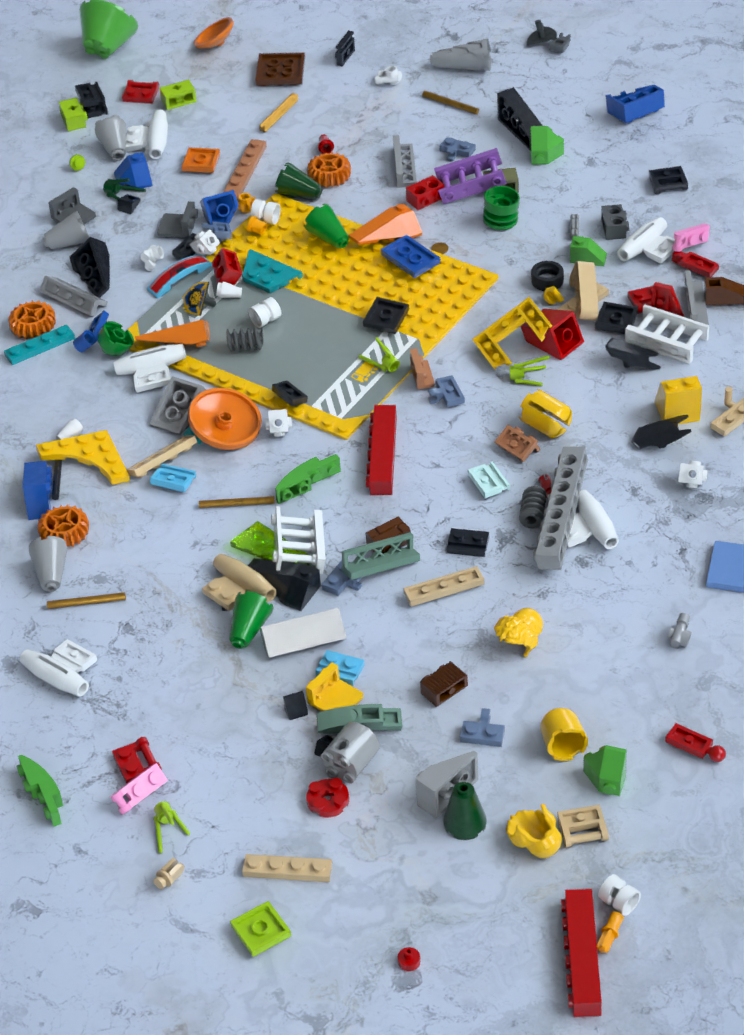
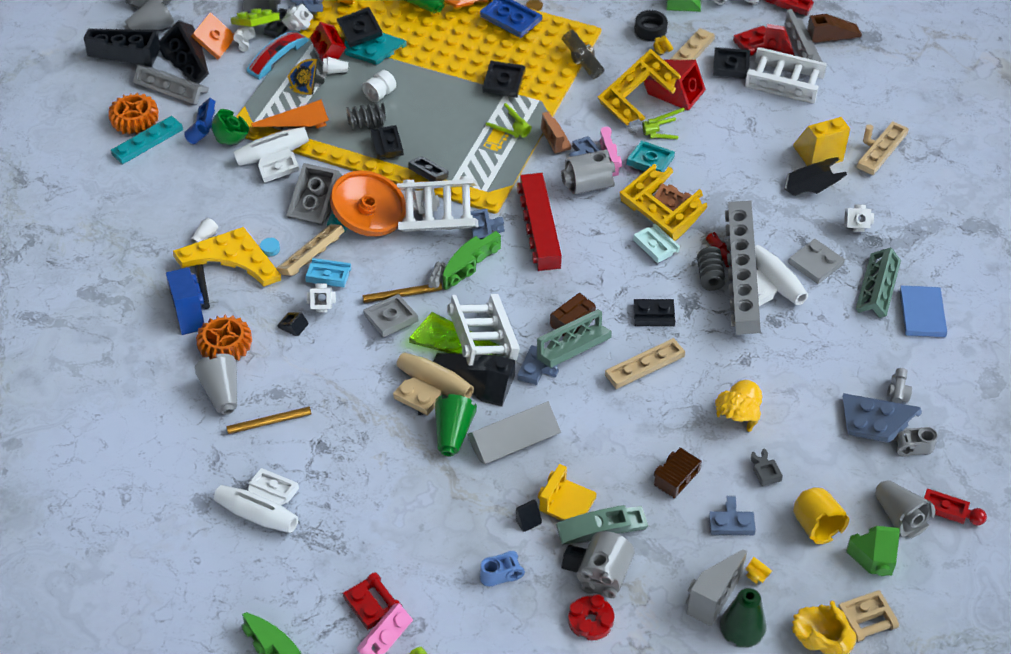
camera: 15 degrees left, 5 degrees up
(37, 256) = (123, 45): none -> black wedge
(122, 254) = (213, 36): none -> plate
(126, 450) = (270, 246): none -> medium azure tile
(130, 519) = (293, 323): none -> black slope
(152, 498) = (315, 303): none -> white brick
(167, 239) = (255, 17): none -> lime plate
(220, 521) = (391, 315): none -> light grey plate
(254, 747) = (503, 567): none -> medium blue piece
(258, 364) = (387, 142): none -> black plate
(259, 255) = (359, 27): none -> black plate
(269, 490) = (436, 275): none -> light grey axle
(293, 441) = (429, 222): none -> white fence
(327, 446) = (485, 224): none -> sand blue plate
(348, 666) = (573, 461): medium azure plate -> none
(440, 408) = (588, 172): none -> light grey cylinder
(469, 298) = (583, 54): none -> clear smoke piece
(470, 390) = (606, 144): none -> bright pink plate
(484, 437) = (639, 196): none -> yellow wedge
(491, 775) = (757, 571): none -> yellow plate
(505, 401) = (648, 154): none -> teal plate
(528, 690) = (765, 470): none -> dark grey plate
(533, 415) = (697, 168): yellow cylinder -> none
(584, 280) = (693, 27): tan beam -> none
(631, 354) = (758, 99): black shield -> none
(640, 511) = (816, 261): none -> light grey plate
(647, 656) = (876, 418): none -> sand blue wing
(647, 739) = (904, 508): none -> light grey cone
(682, 681) = (916, 441): none -> light grey piece
(695, 535) = (883, 279): none -> sand green fence

